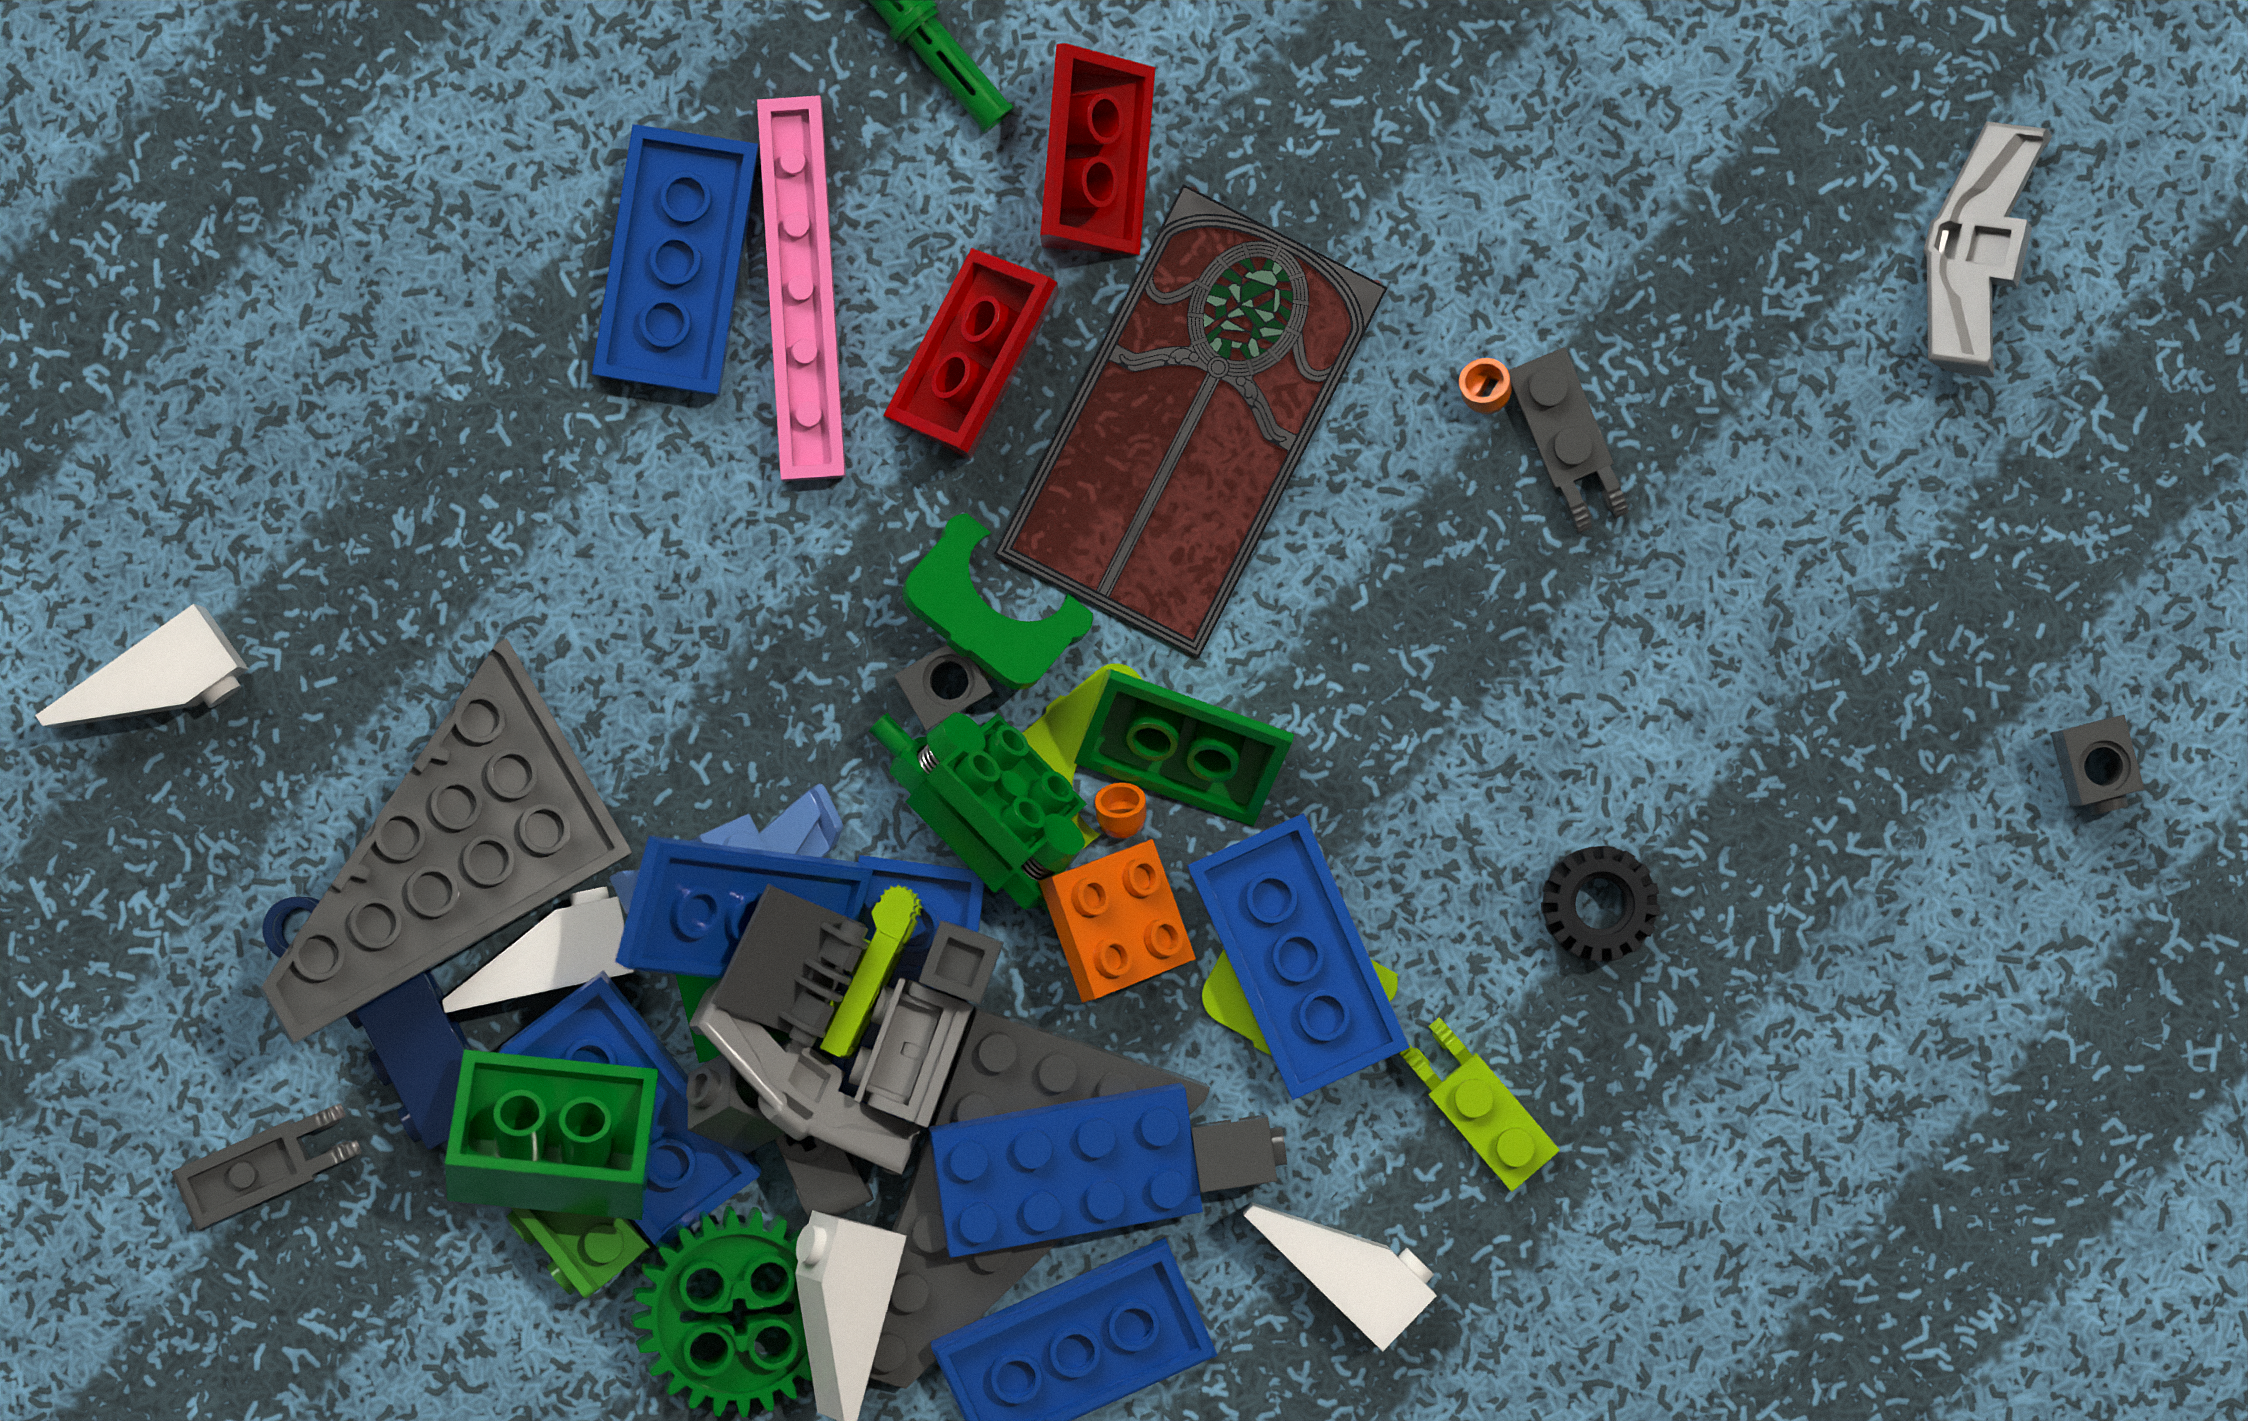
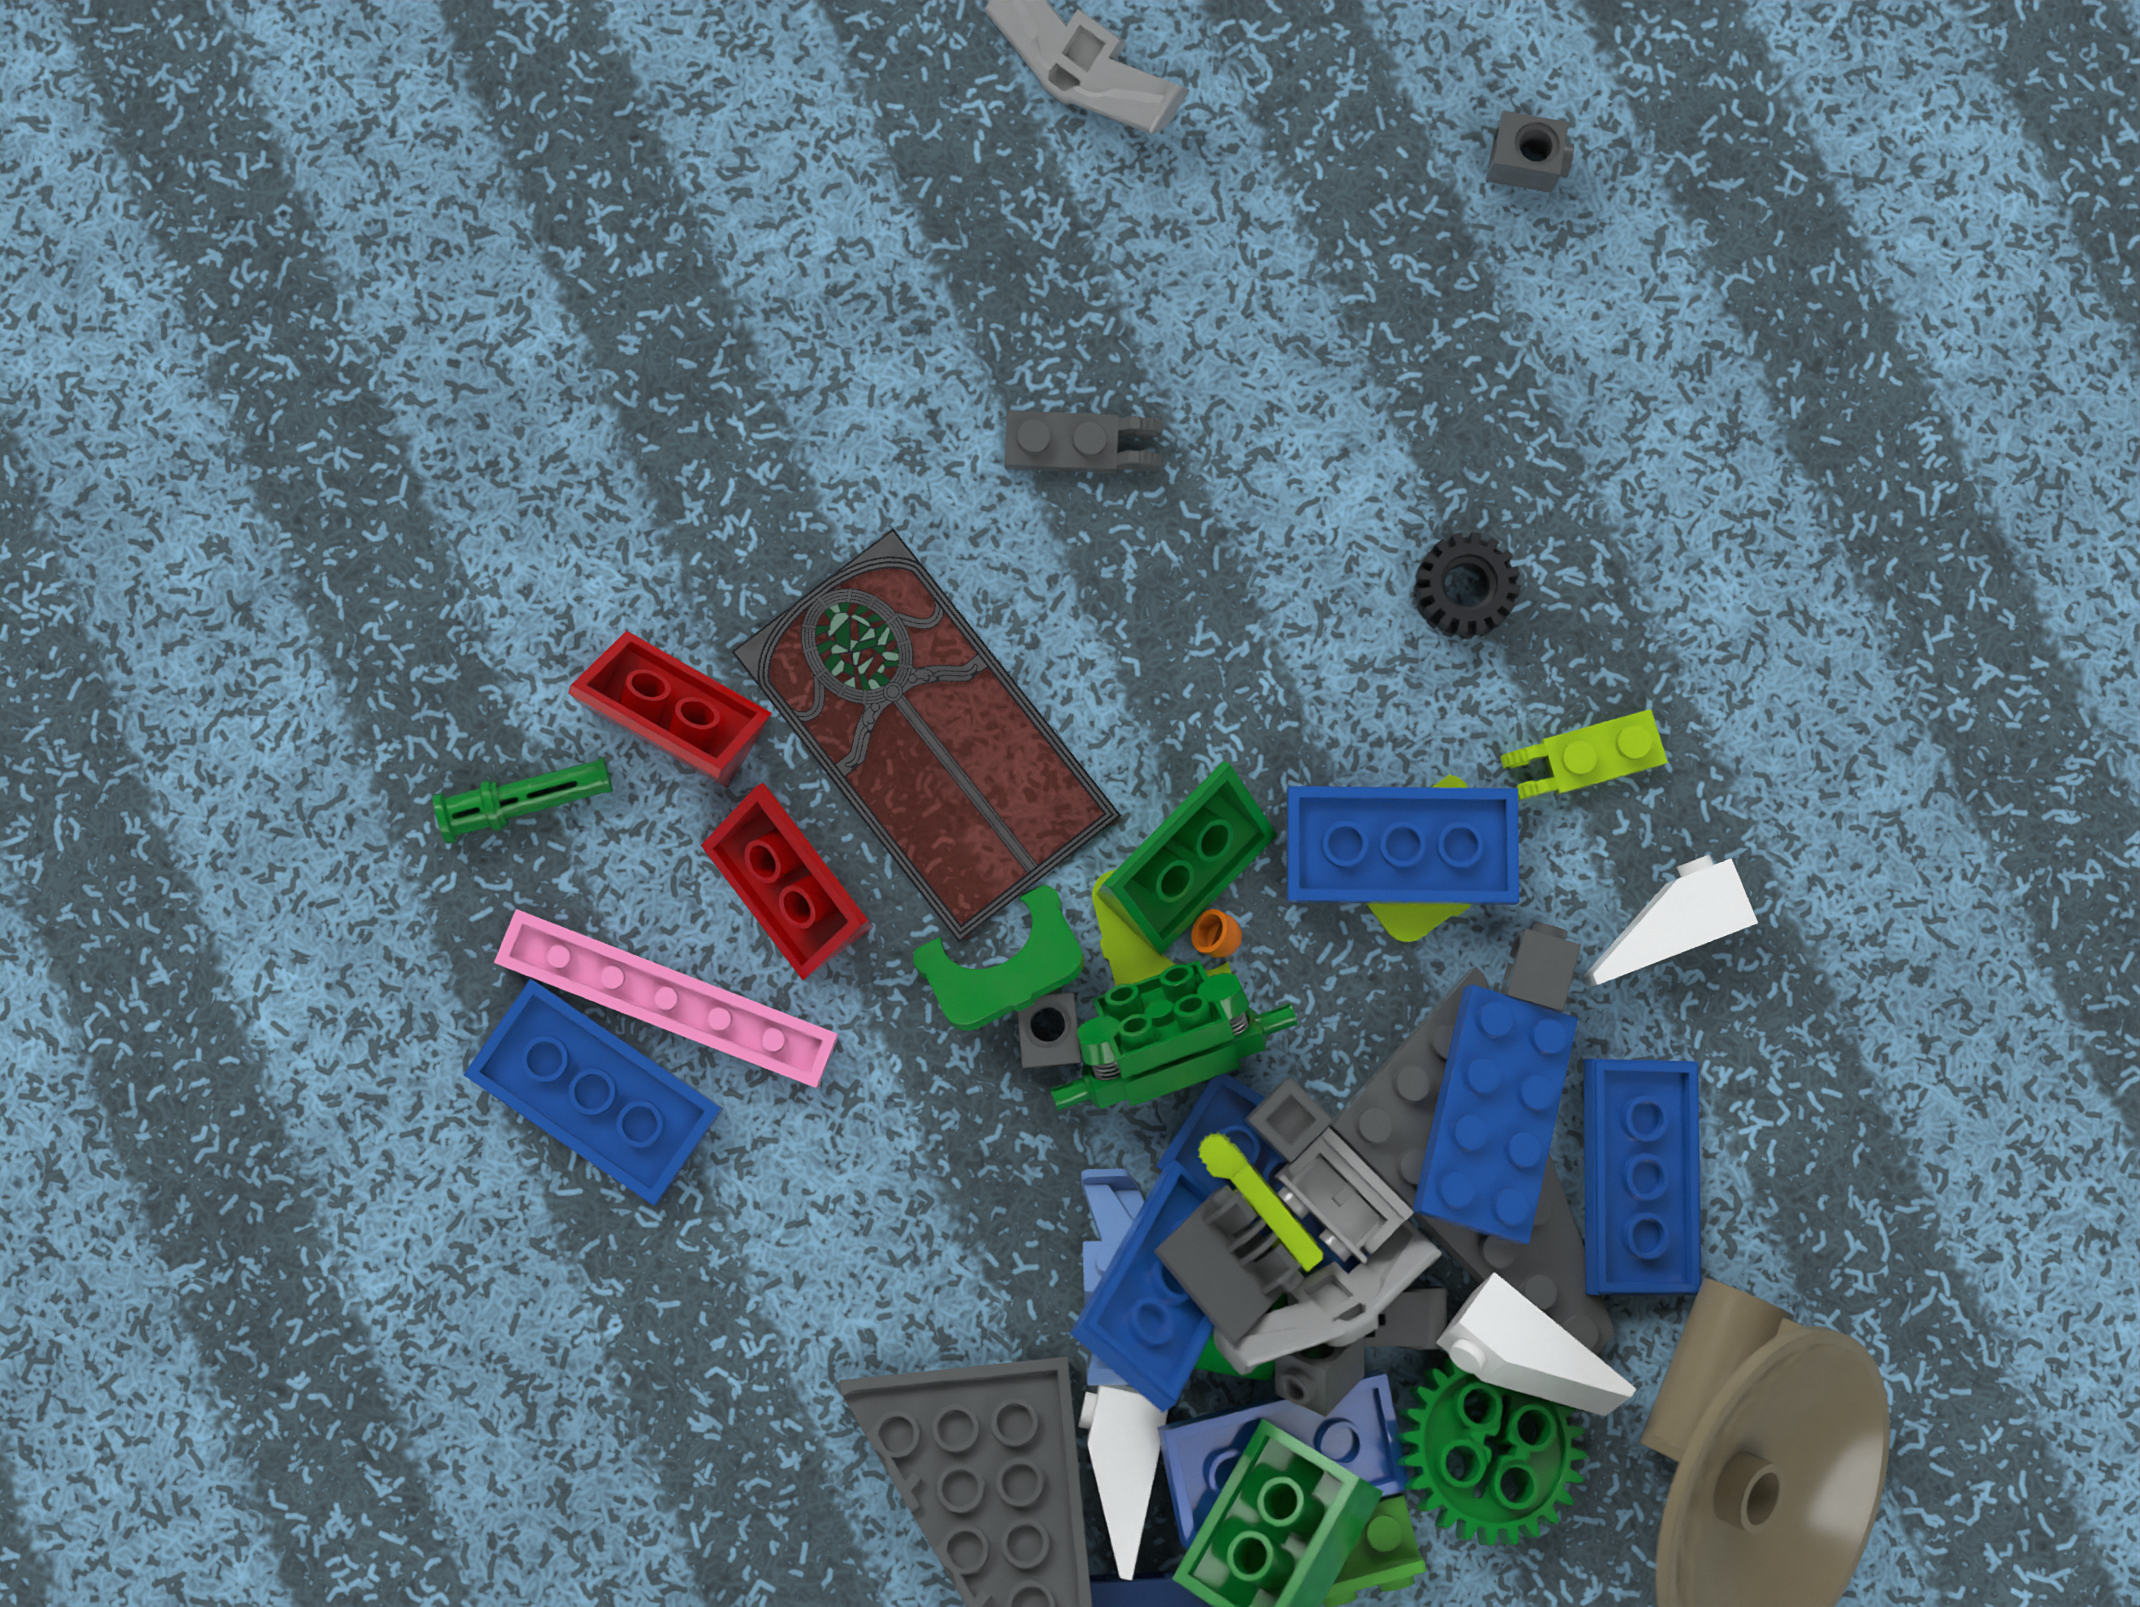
camera: 70 degrees left, 5 degrees down
(1117, 920) = (1307, 978): orange plate -> none
(1474, 381) = (1000, 493): orange hinge -> none

